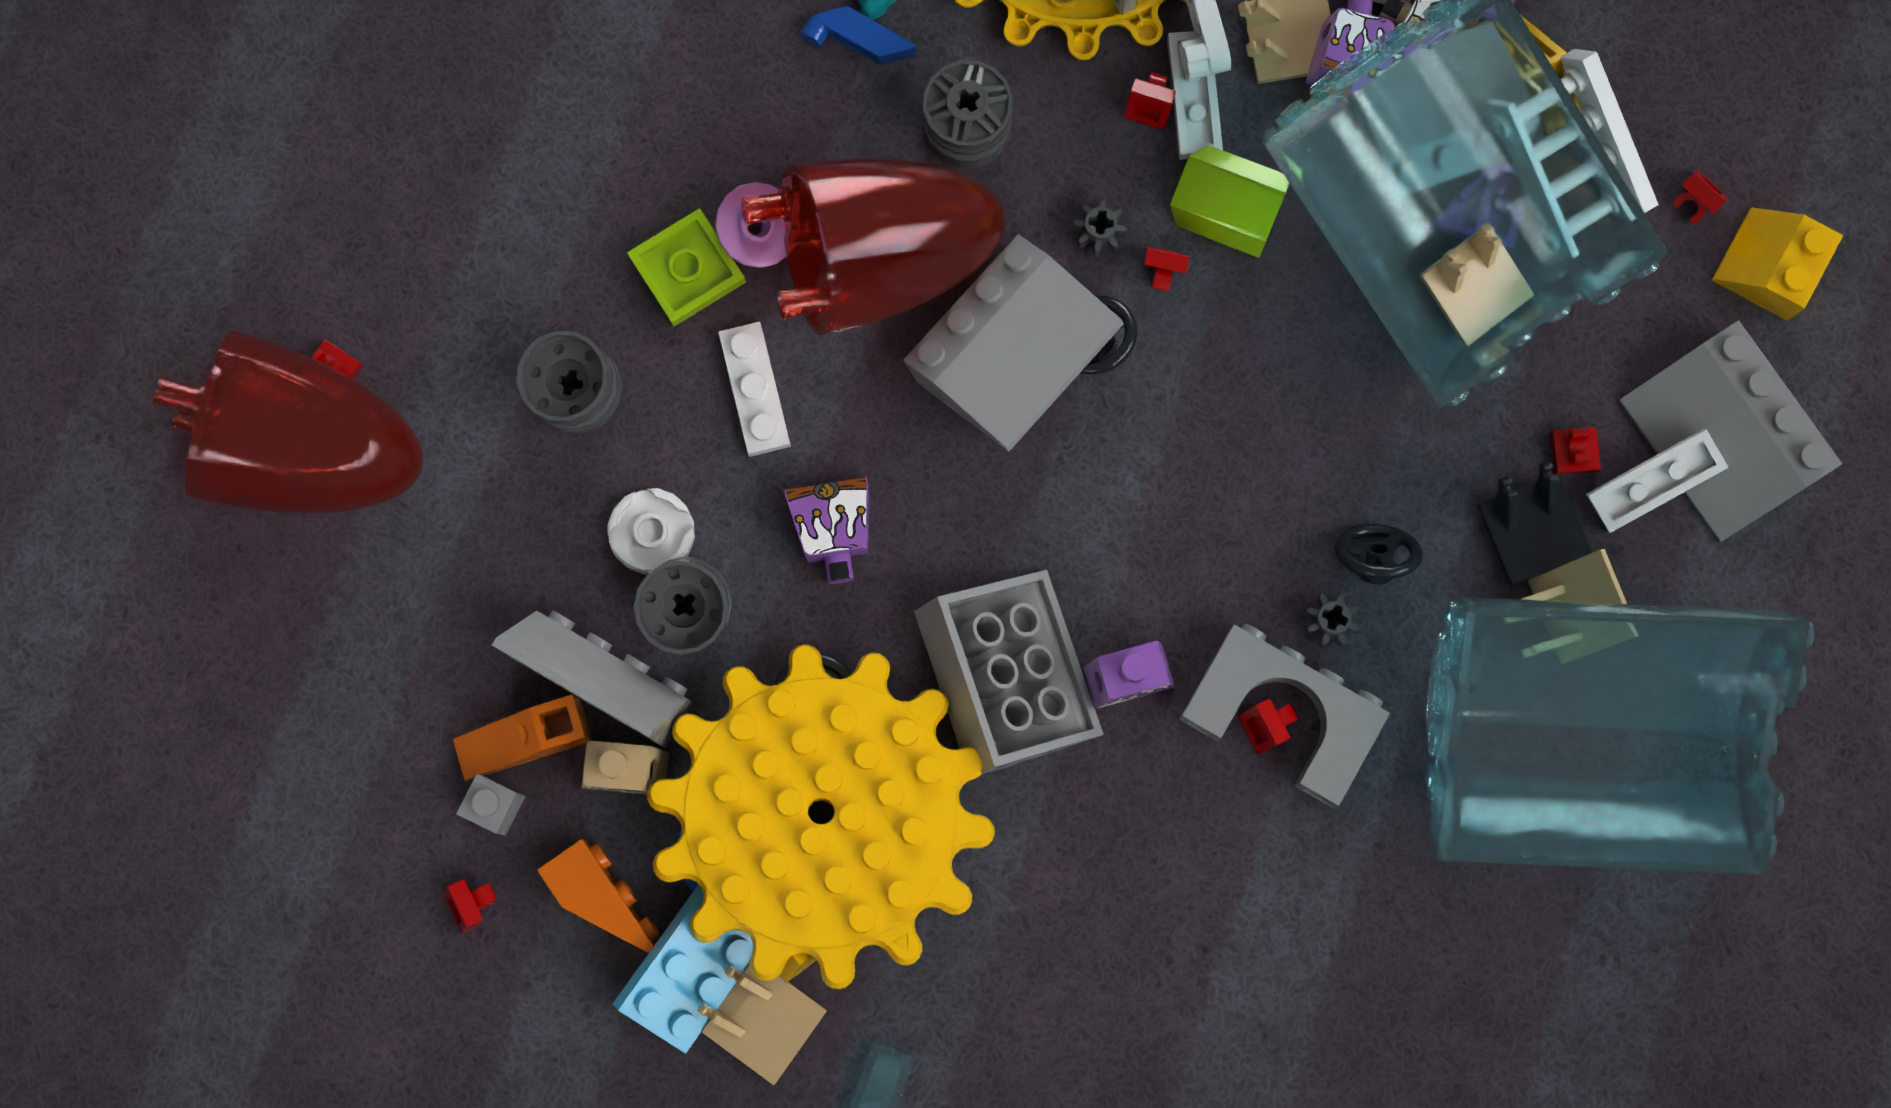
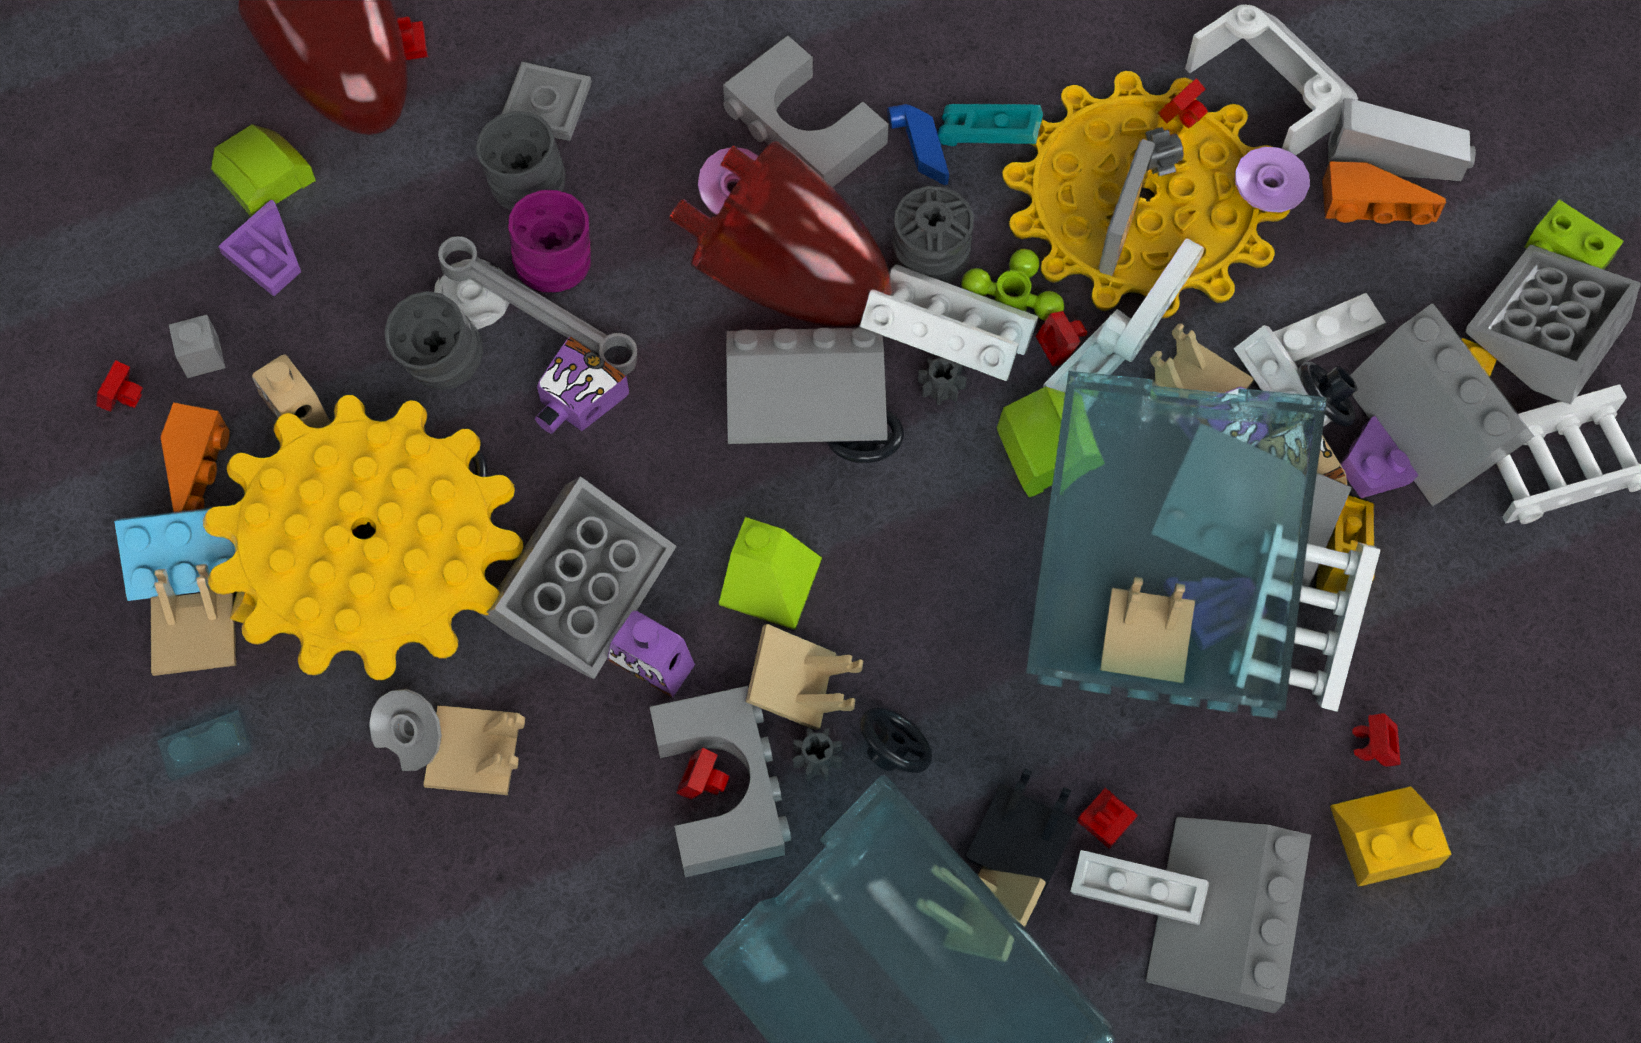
camera: 45 degrees right, 15 degrees down
(346, 605) = (260, 167): none -> lime slope
(440, 670) = (263, 250): none -> medium lavender wing
(511, 305) = (551, 95): none -> light grey tile
(523, 737) = (264, 329): orange slope -> none
(596, 675) = (335, 325): light grey slope -> none
(668, 402) = (550, 240): none -> magenta wheel
(686, 267) = (665, 169): lime plate -> none
(720, 490) = (533, 303): none -> light grey piece
(754, 389) = (626, 274): white plate -> none
(794, 134) = (774, 76): none -> light grey arch
(1018, 918) = (392, 728): none -> light grey dish
(1057, 67) = (1022, 265): none -> lime piece
(1060, 152) = (950, 322): none -> white fence
(1081, 881) = (475, 750): none -> tan plate
(1144, 521) = (769, 574): none -> lime slope
(1165, 262) = (958, 439): red tile -> none
(1253, 582) = (793, 678): none -> tan plate

